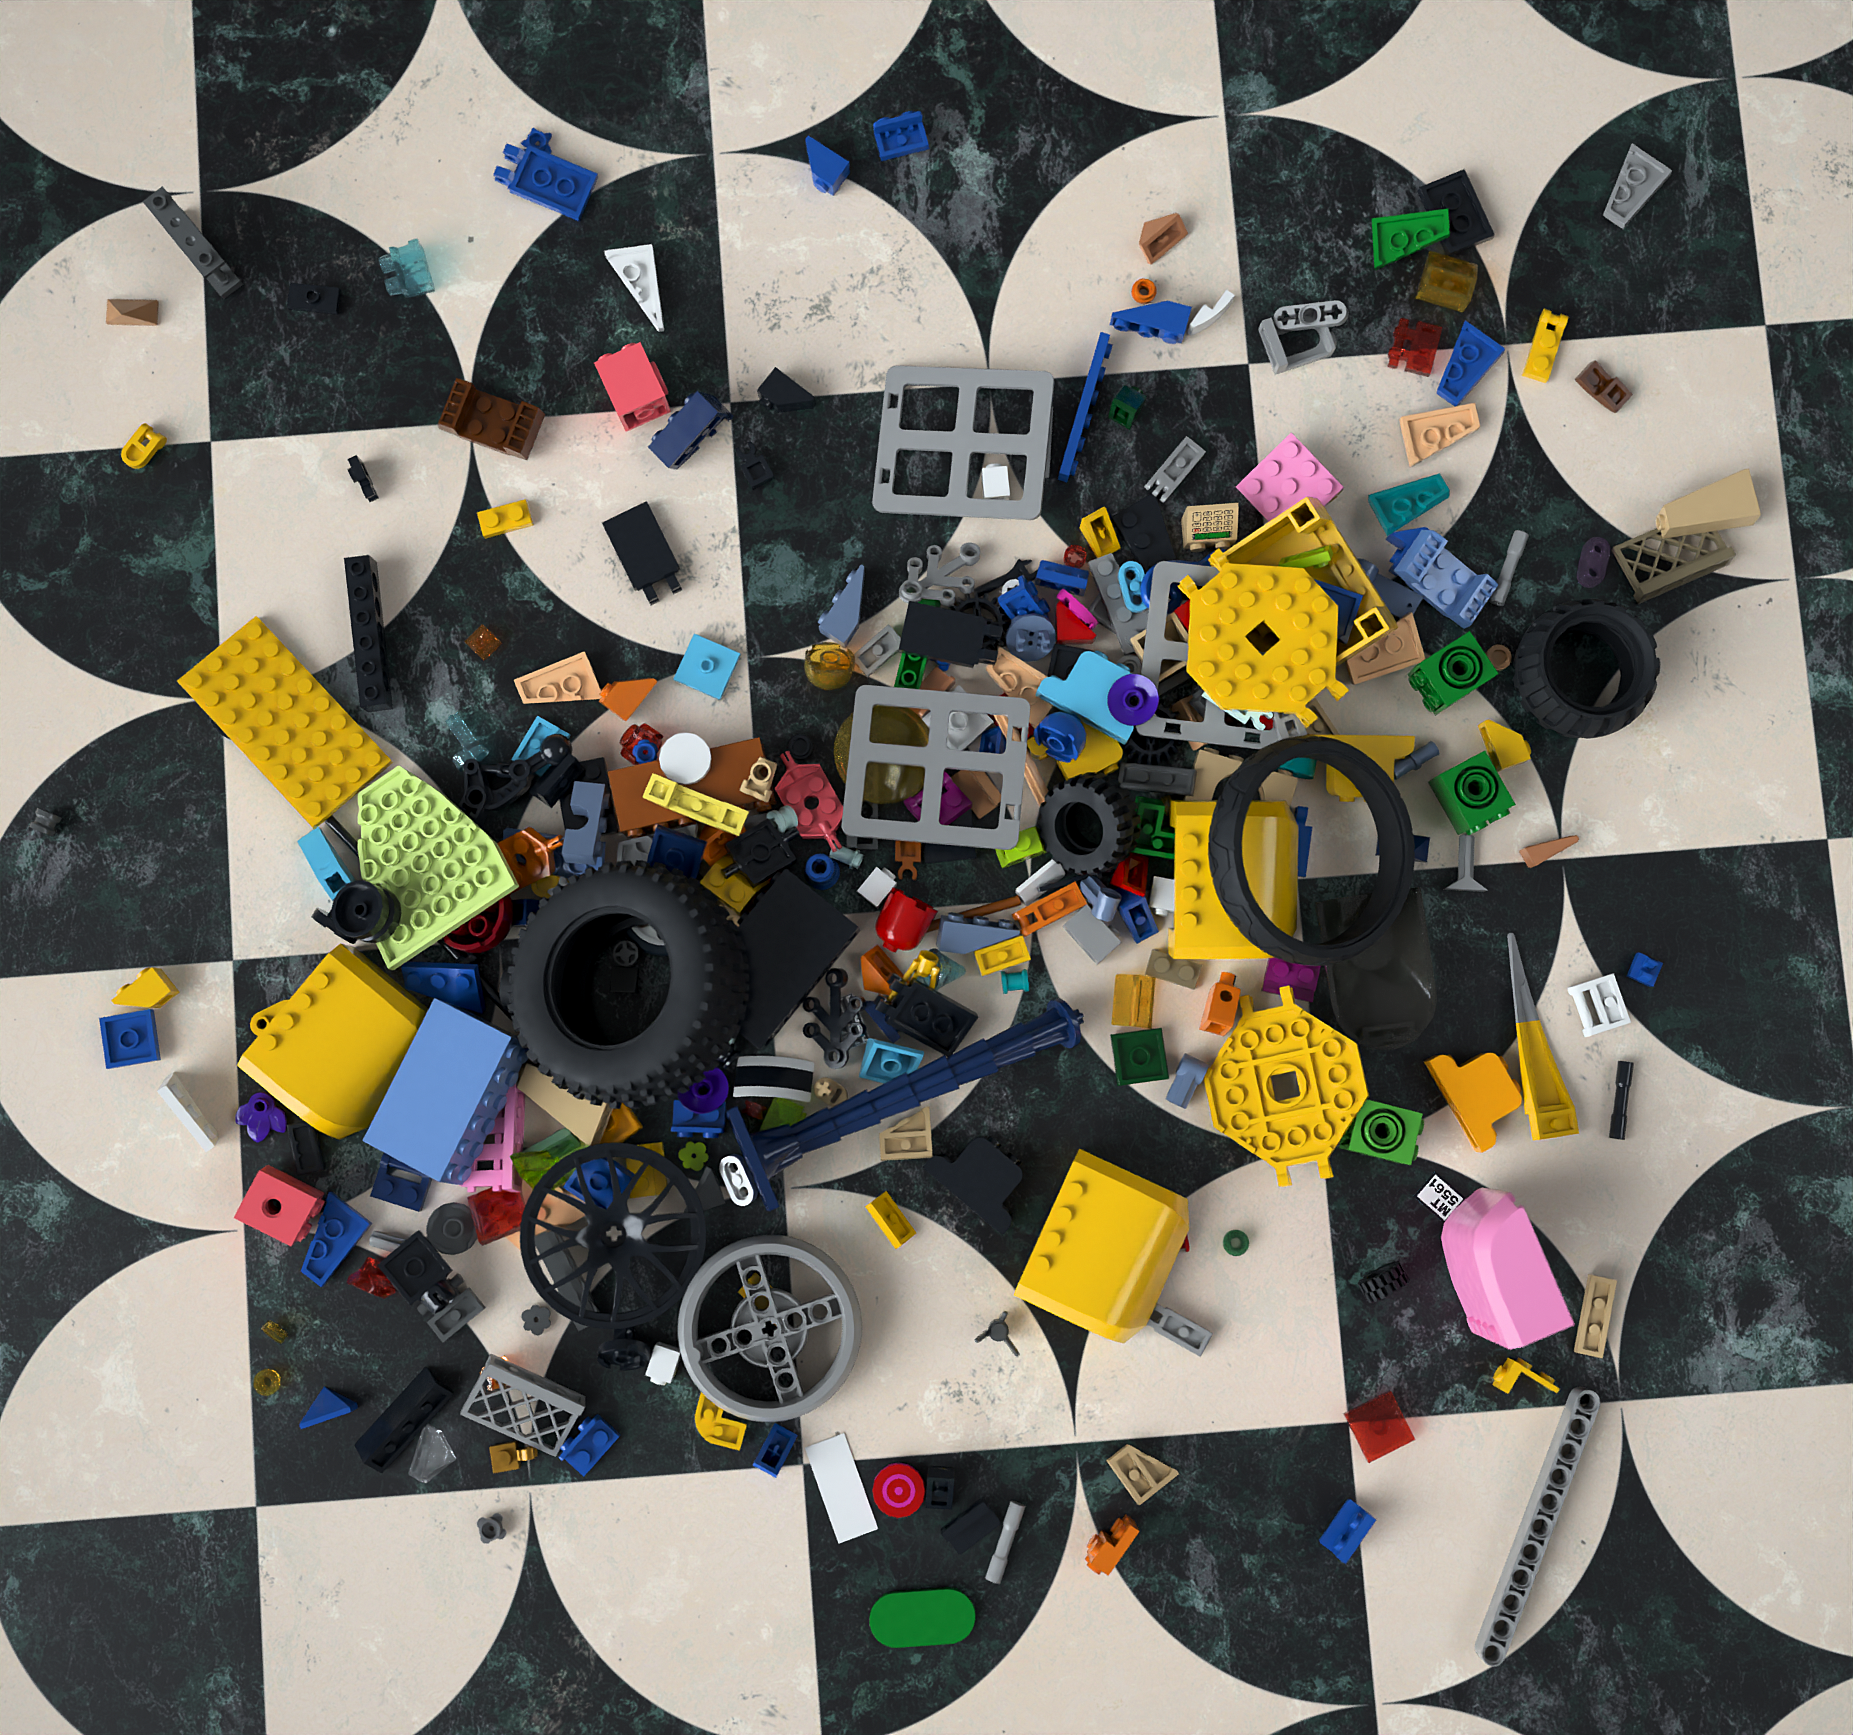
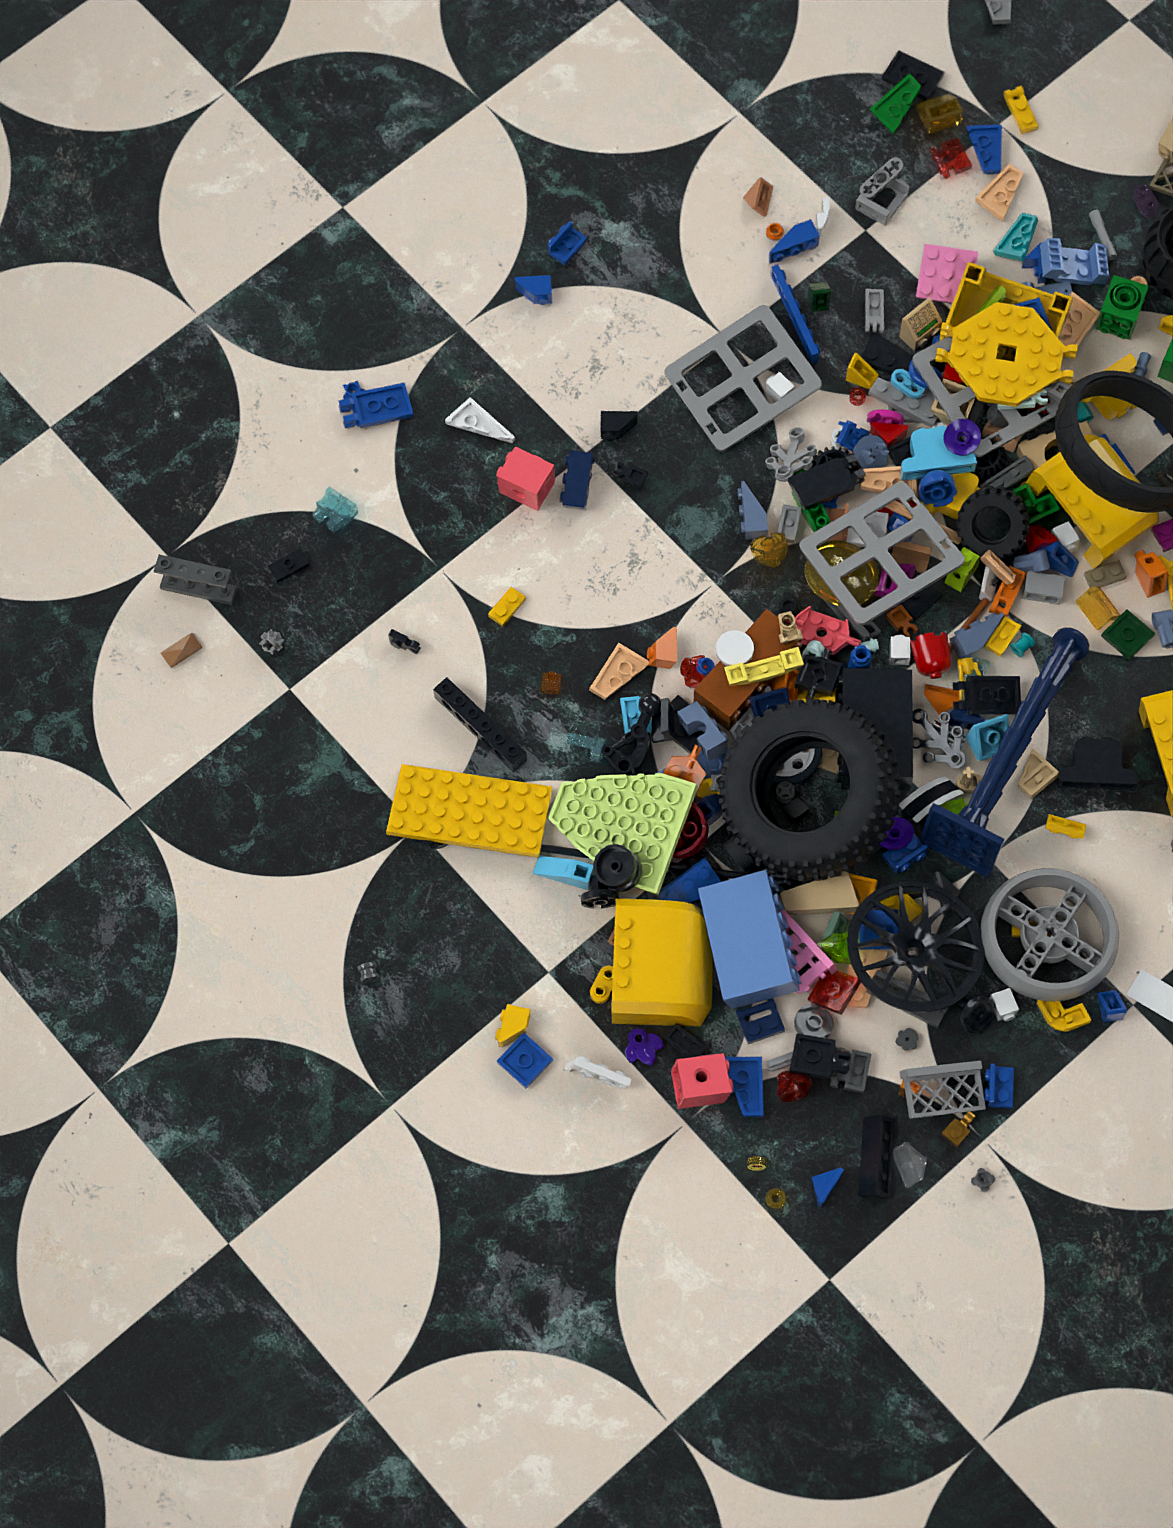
camera: 35 degrees left, 15 degrees down
(136, 454) = (252, 724): yellow plate -> none
(225, 374) = (271, 641): none -> light grey gear
(491, 420) = (454, 557): reddish brown plate -> none
(643, 550) = (605, 566): black tile -> none
(686, 1155) = (920, 872): lime plant -> none
(707, 667) = (696, 603): medium azure plate -> none
(737, 1180) = (958, 870): white plate -> none
(1018, 570) = (831, 426): black piece -> none
(1055, 878) = (998, 567): none -> light nougat slope
(1062, 577) = (859, 411): blue bracket -> none
(1603, 388) = (1071, 110): reddish brown slope -> none

